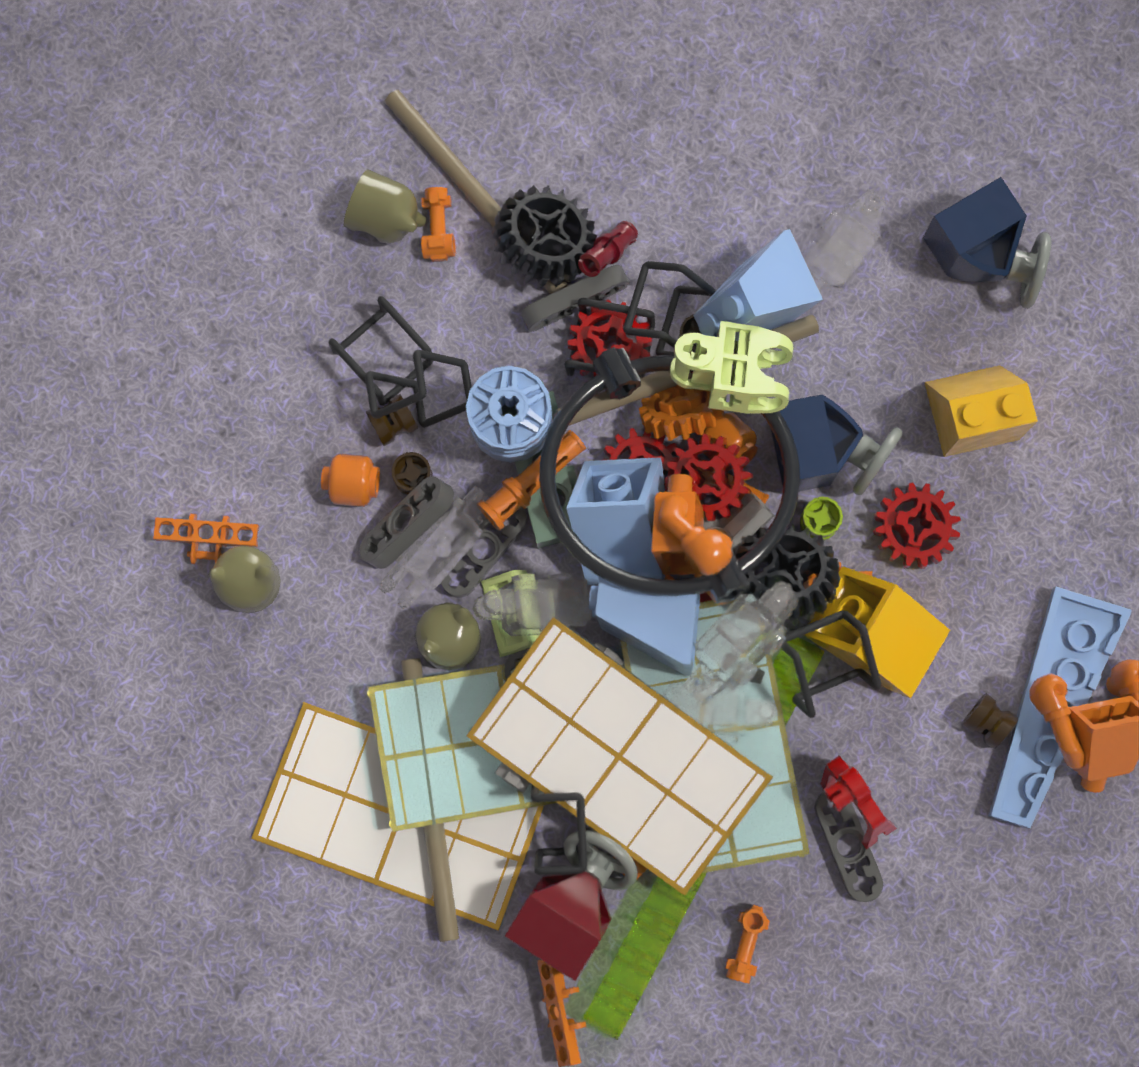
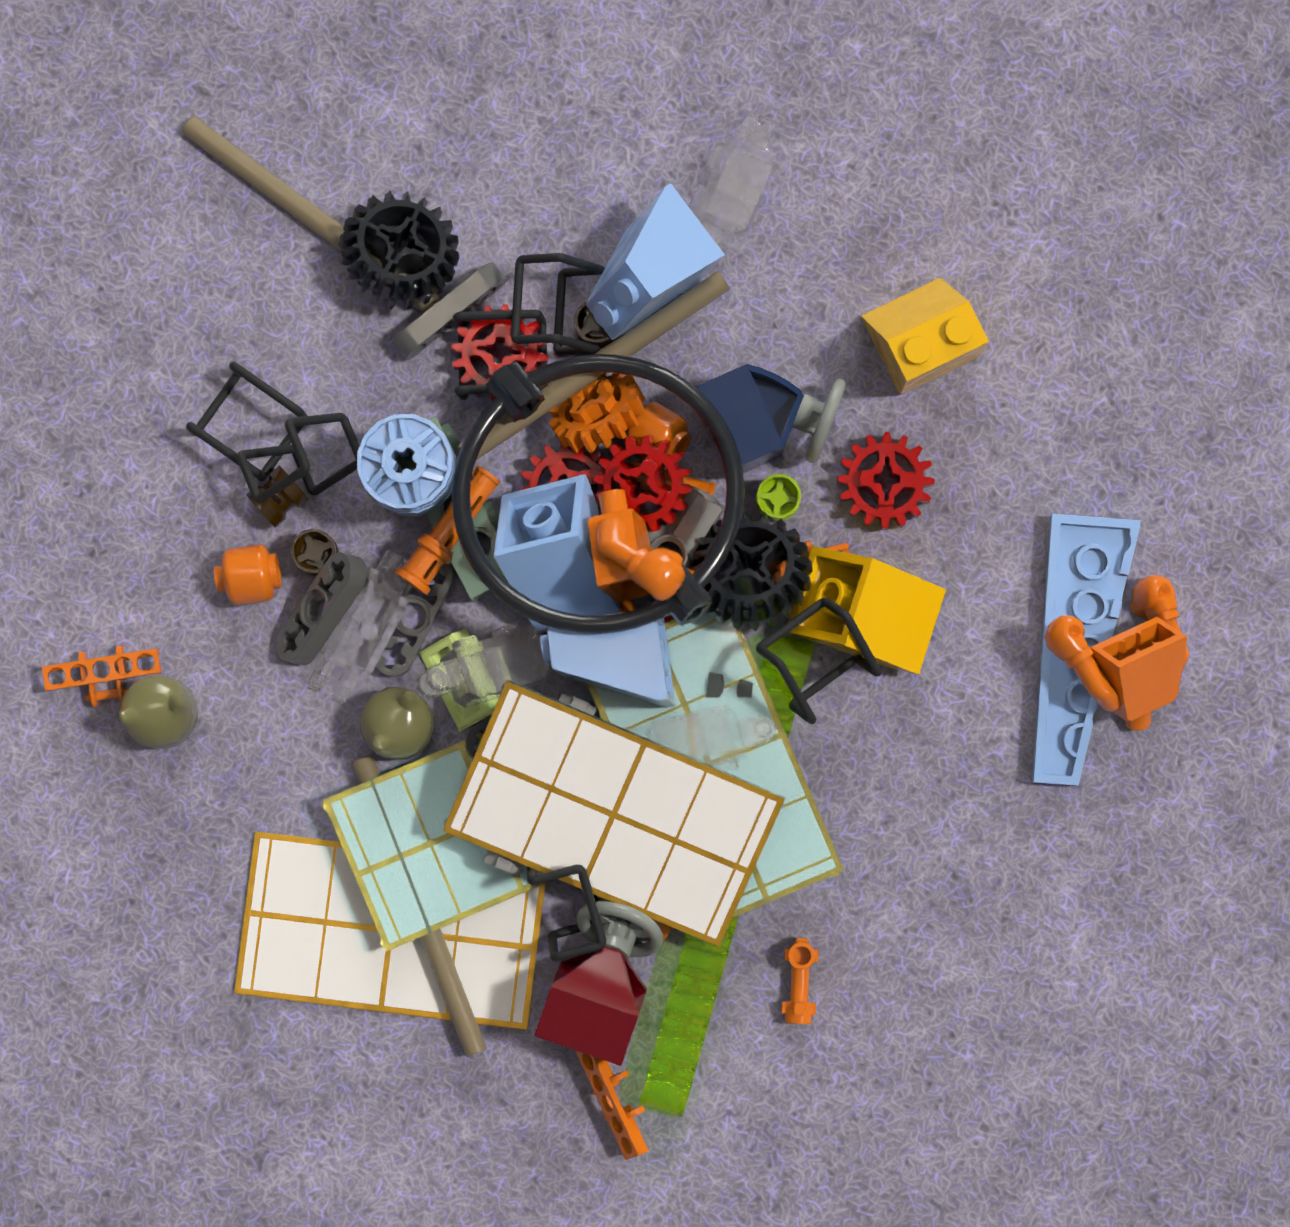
camera: 10 degrees left, 5 degrees up
(383, 208) = (210, 259): olive piece -> none
(438, 244) = (281, 285): orange bar -> none
(608, 249) = (473, 248): dark red pin -> none
(714, 371) = (618, 355): yellowish green piece -> none
(740, 641) = (716, 660): clear hinge -> none
(851, 877) = (915, 871): dark grey beam -> none
(853, 788) = (867, 789): red piece -> none
(981, 238) = (886, 143): dark blue piece -> none
(990, 721) = (1011, 678): dark brown wheel -> none

